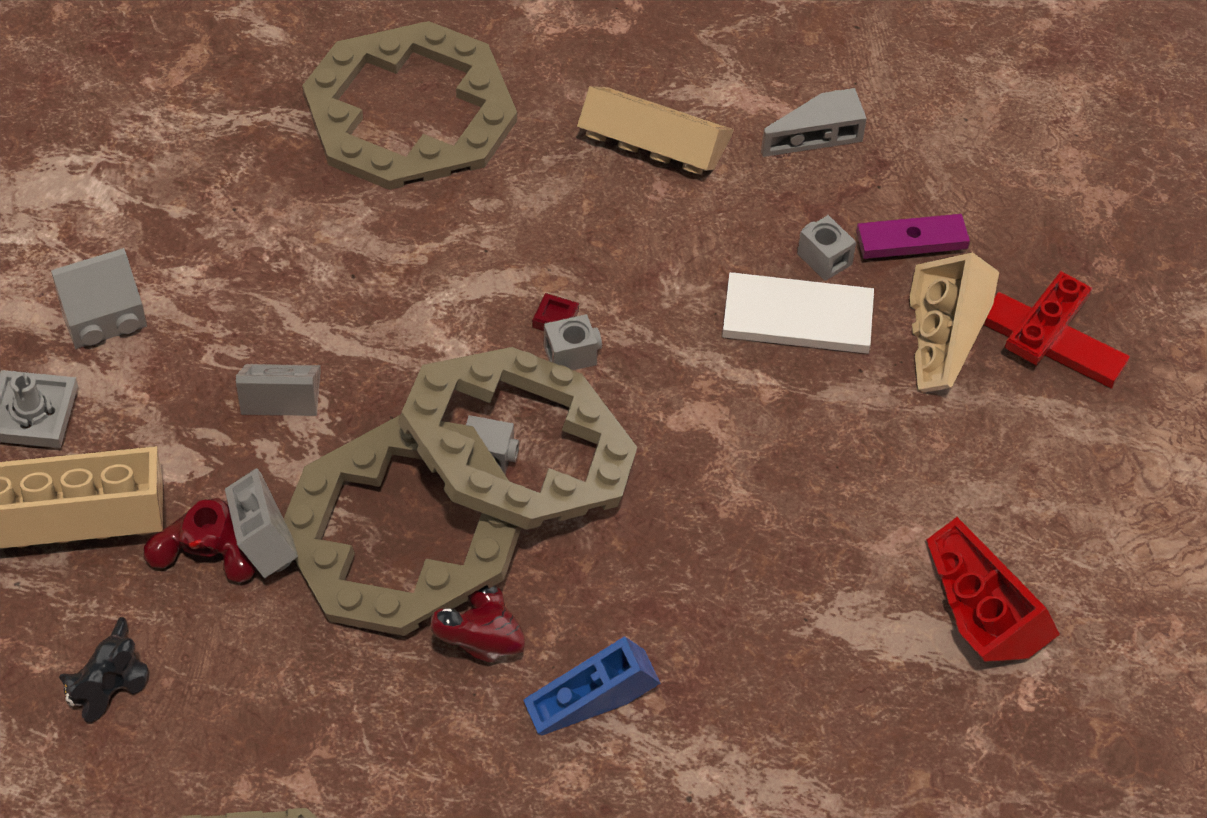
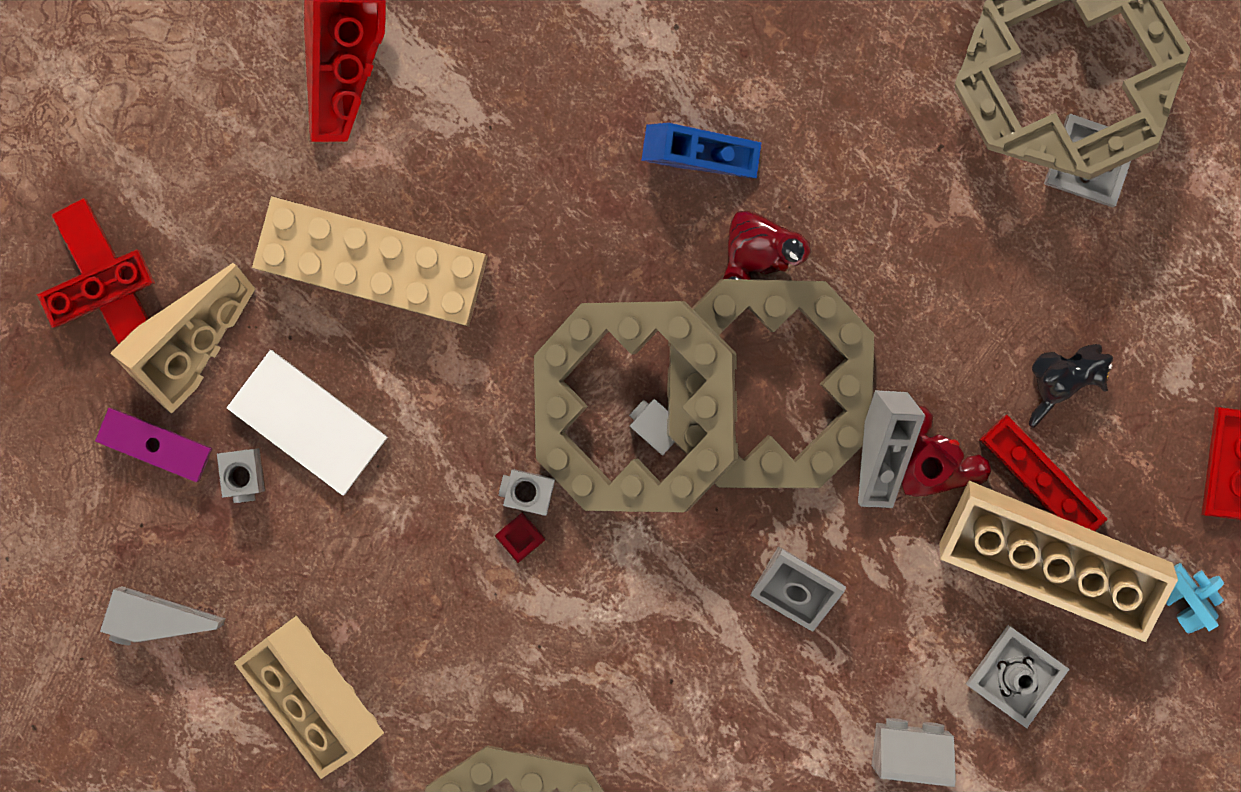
camera: 145 degrees left, 35 degrees up
(87, 580) = (1040, 475): none -> red tile
(833, 447) = (370, 261): none -> tan brick

